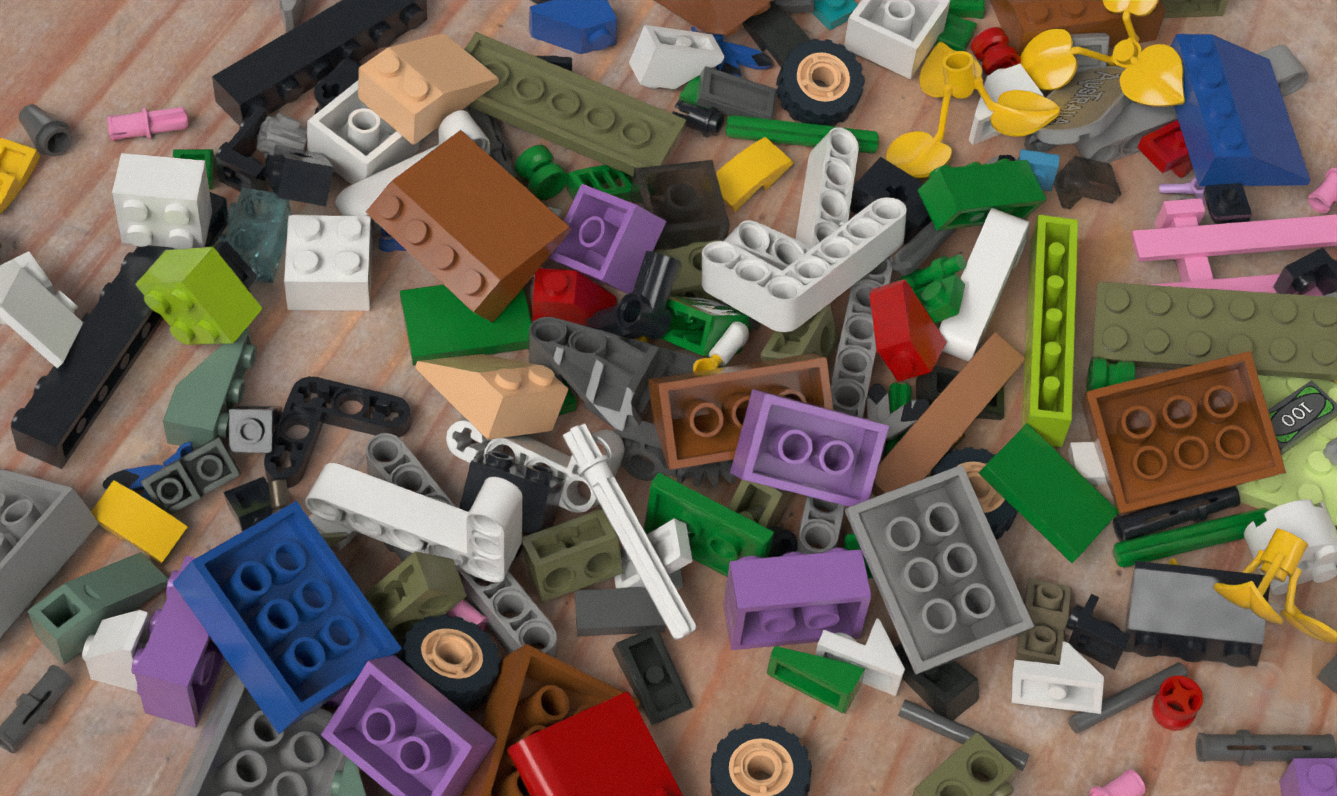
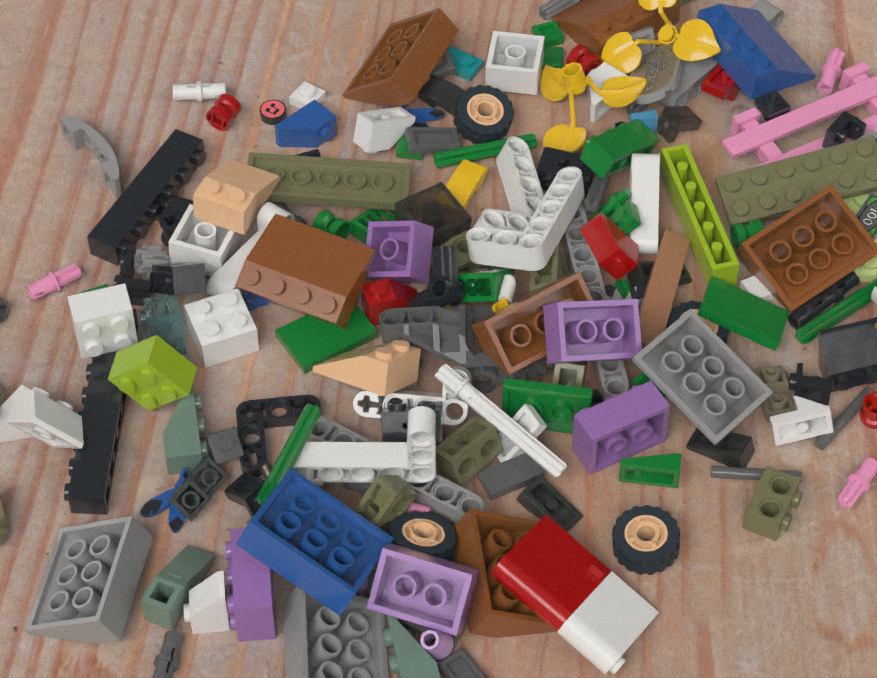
camera: 15 degrees left, 5 degrees down
(138, 521) = (178, 526): yellow slope -> none
(322, 470) = (291, 450): none -> green axle
(700, 119) = (418, 161): black pin -> none
(877, 657) = (683, 442): white slope -> none
(1187, 188) = (745, 103): lavender hand -> none

